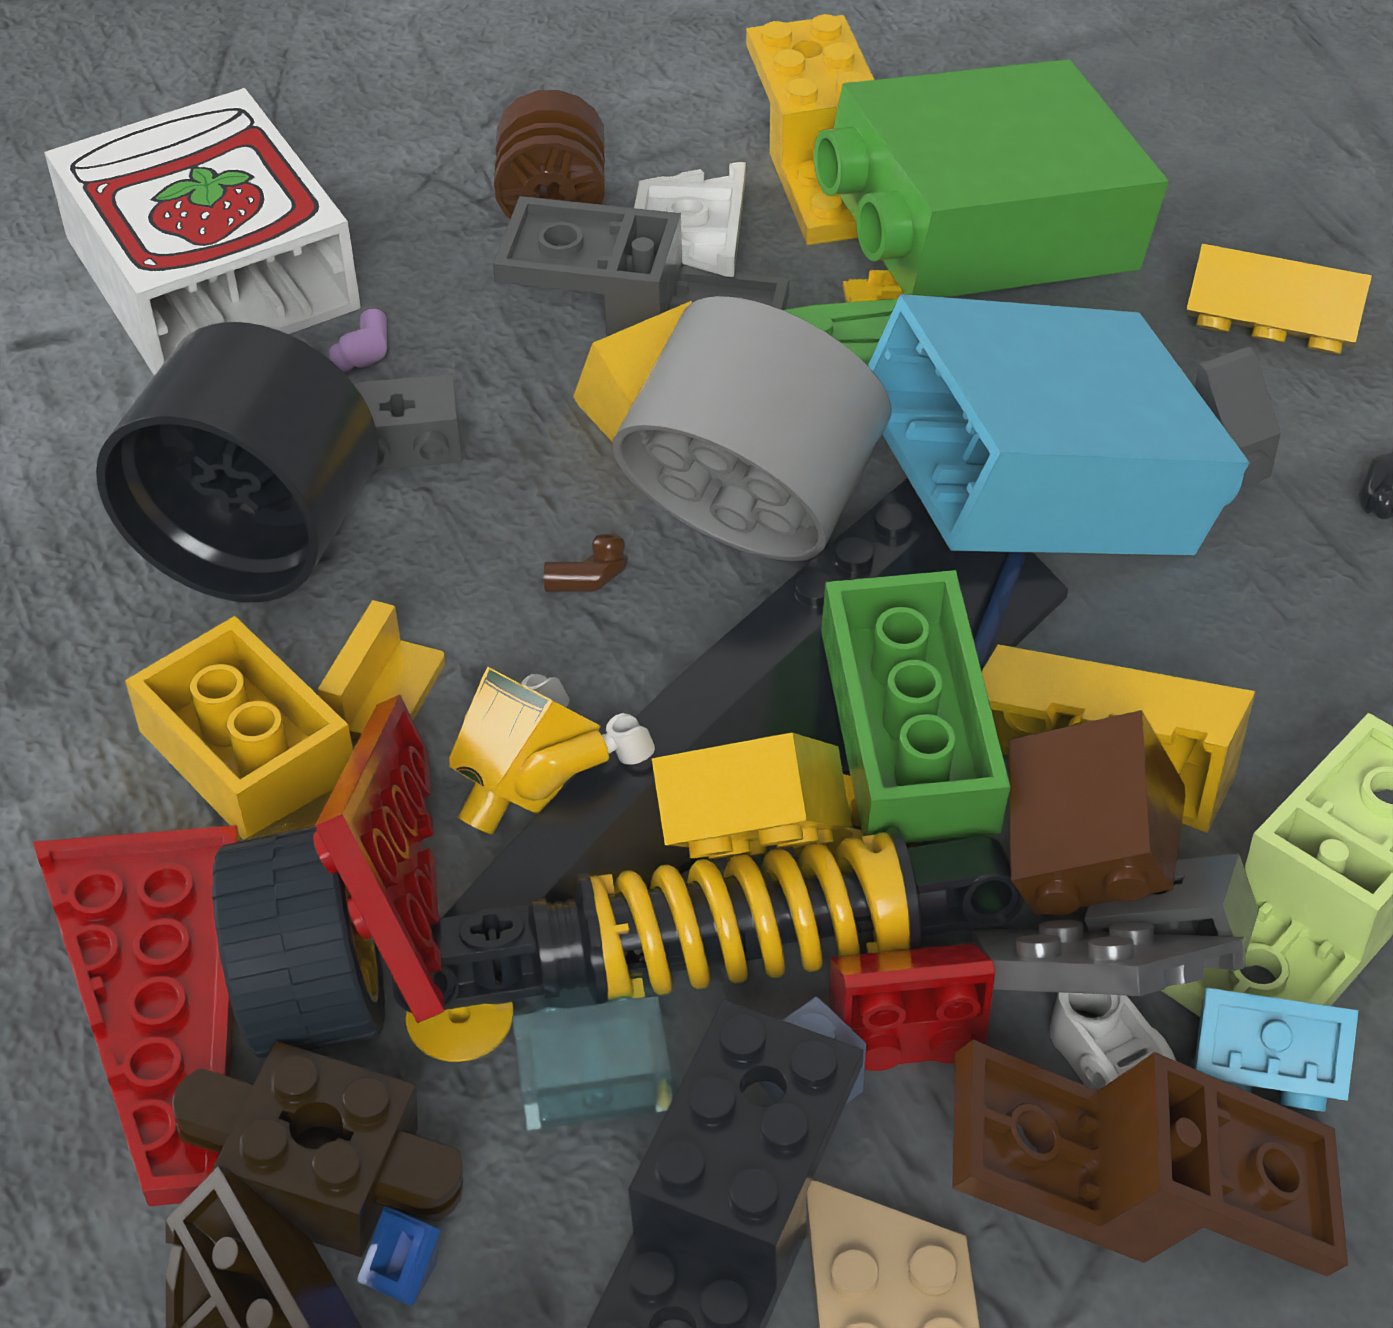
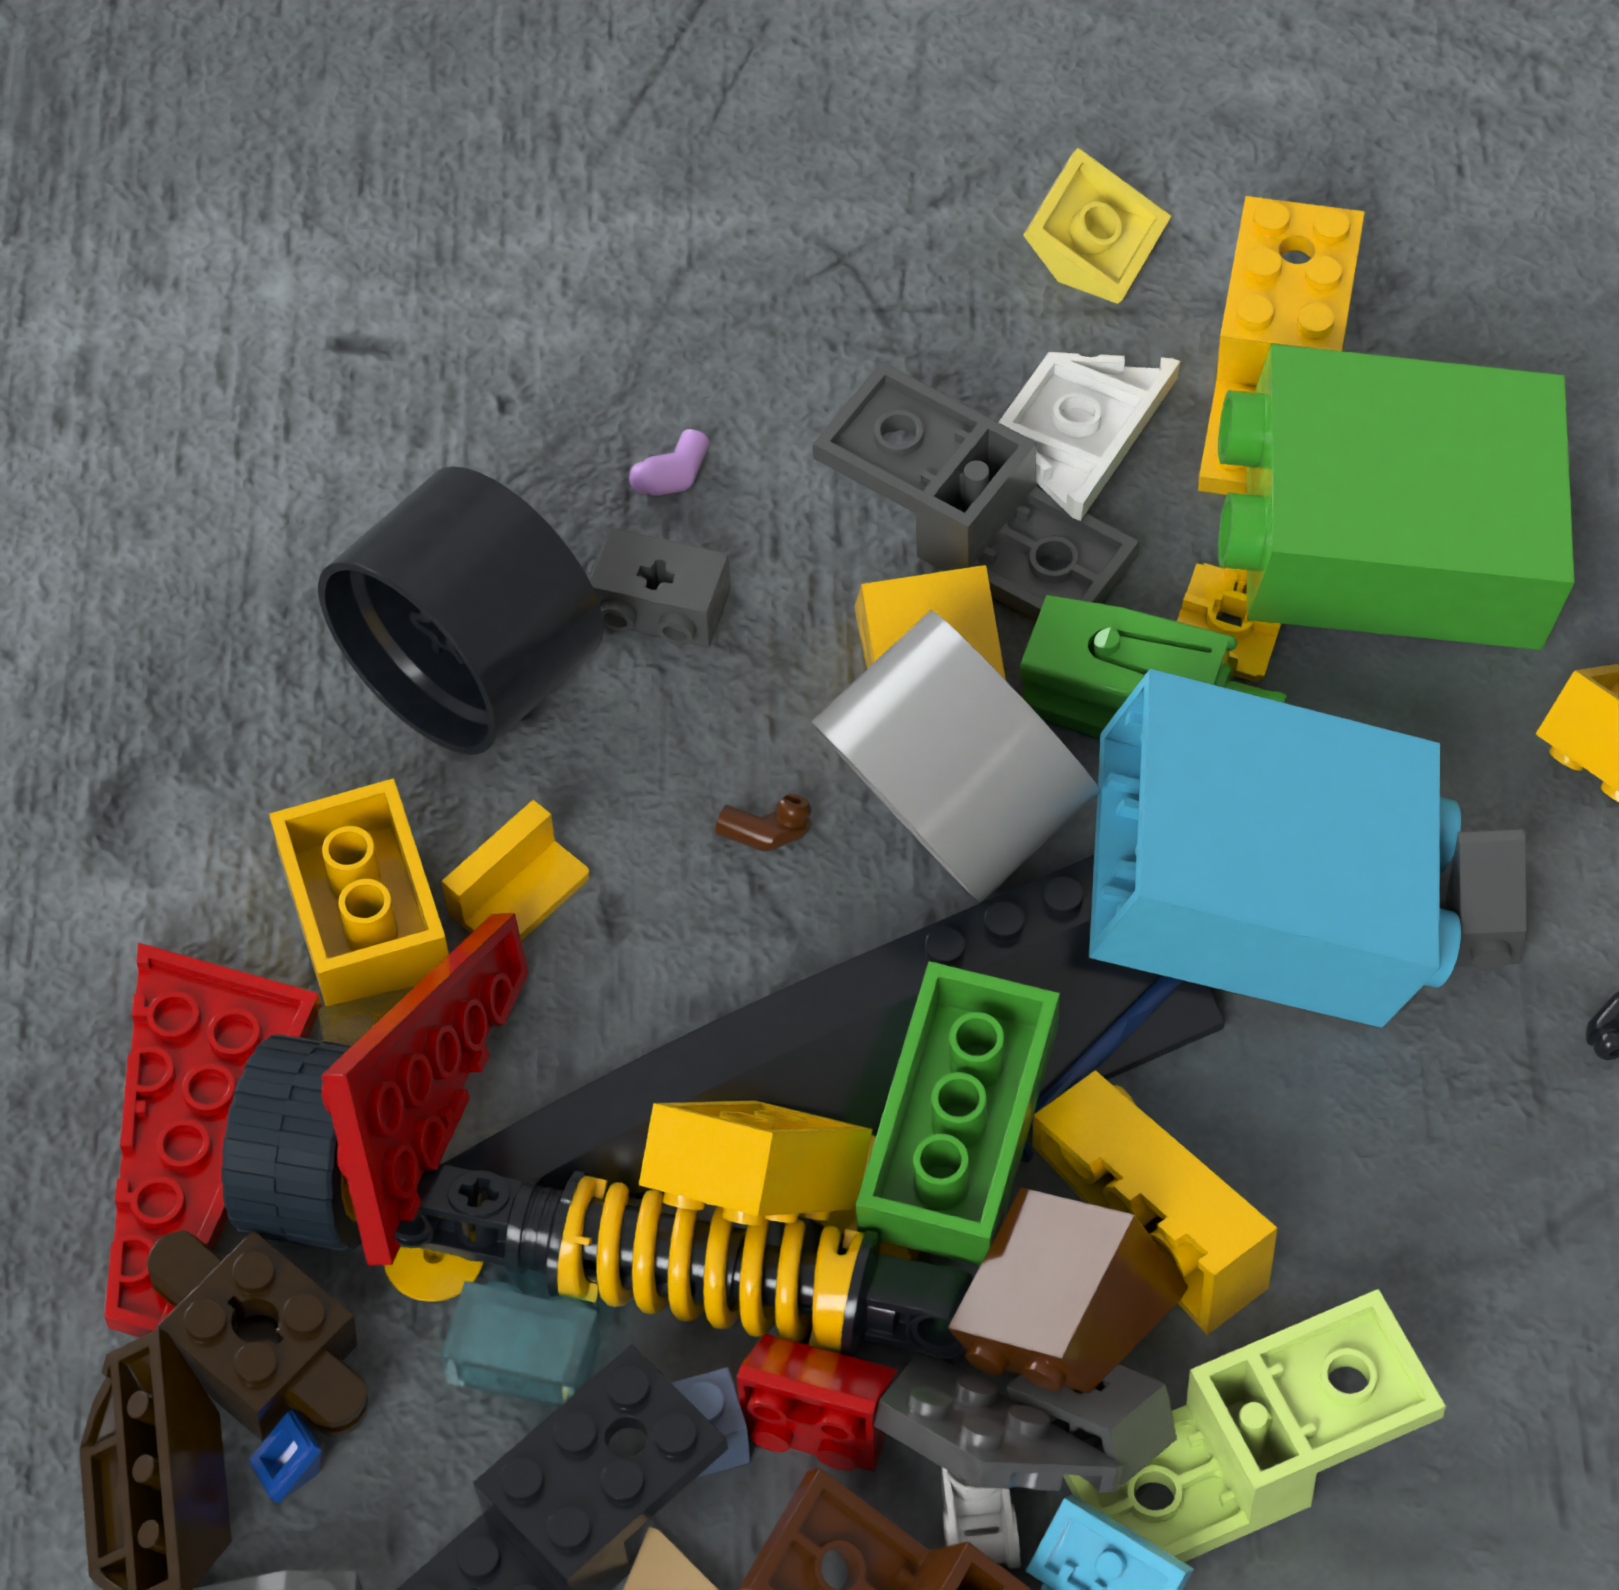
camera: 25 degrees right, 10 degrees up
(203, 225) = (558, 276): brick -> none
(526, 744) = (605, 1013): yellow torso -> none
(549, 149) = (955, 304): reddish brown wheel -> none
(630, 100) = (1095, 229): none -> light yellow slope

